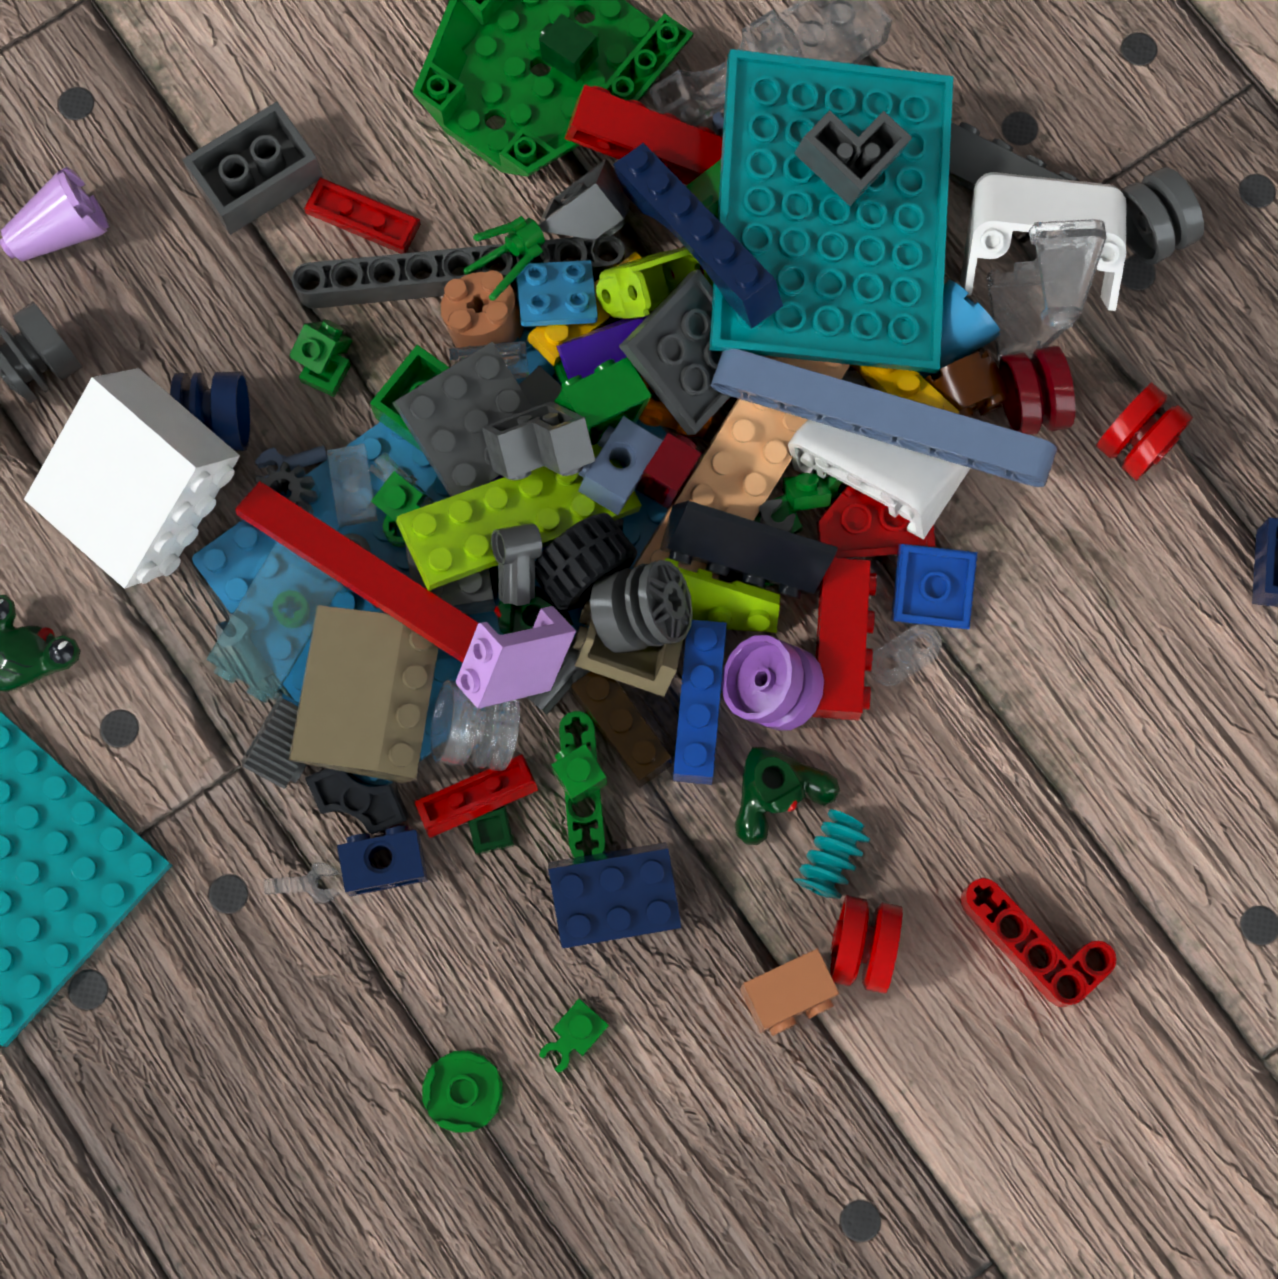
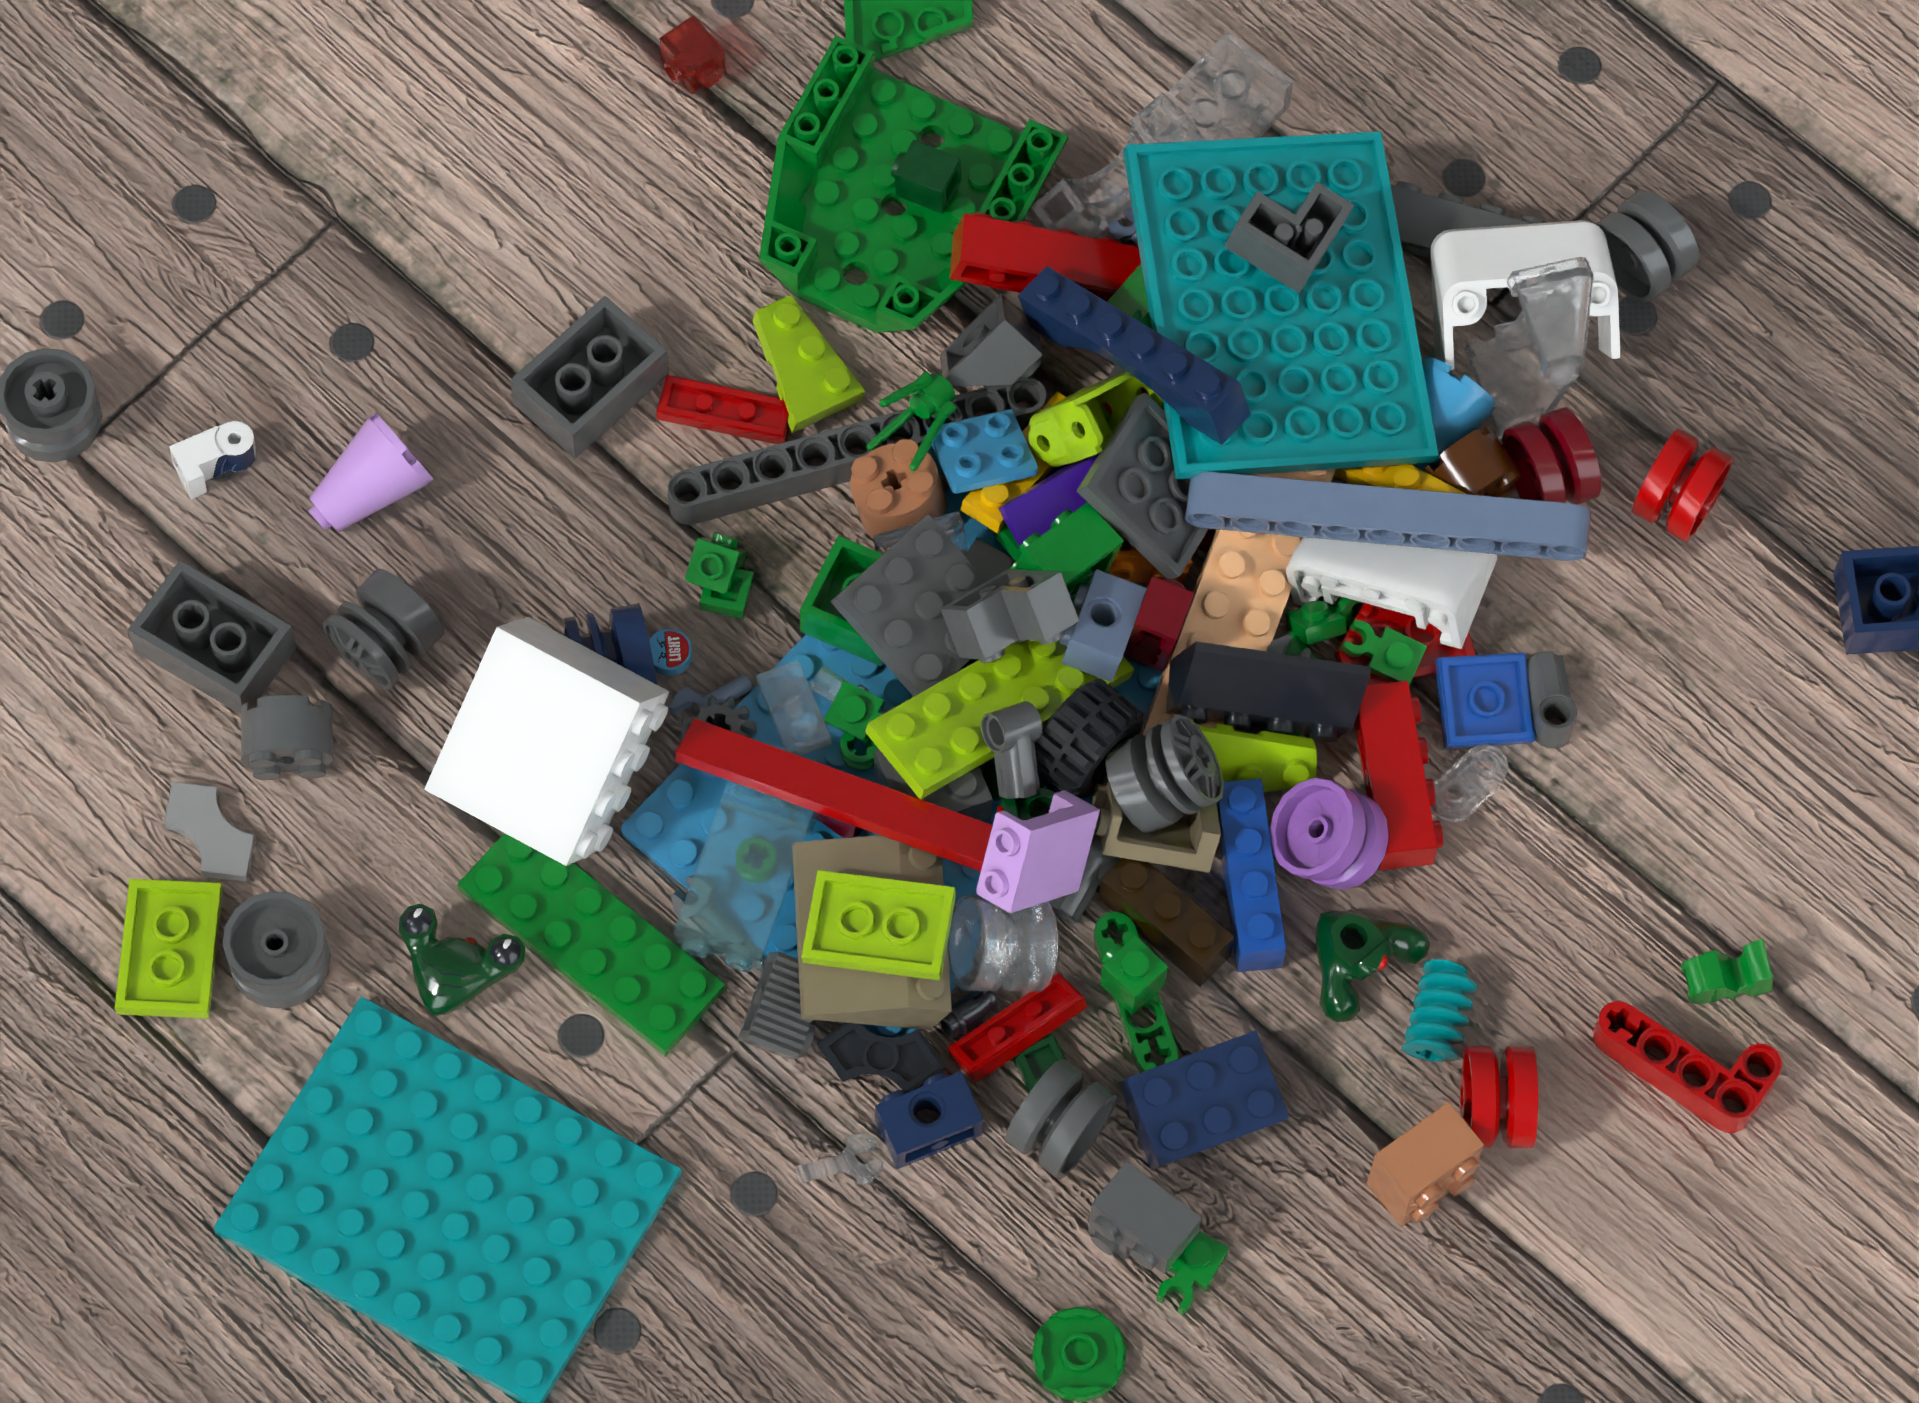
camera: 15 degrees left, 10 degrees down
(148, 655) = (593, 941): none -> green plate
(267, 414) = (670, 652): none -> tile
(366, 696) = (879, 925): none -> lime plate
(435, 195) = (806, 367): none -> lime wing
(436, 775) = (967, 1012): none -> black pin
(488, 888) = (1060, 1118): none -> dark grey wheel
(536, 995) = (1141, 1220): none -> dark grey brick
(861, 534) = (1390, 655): none -> green plate
(990, 594) = (1550, 698): none -> dark grey piece
(1084, 870) = (1719, 976): none -> green leg

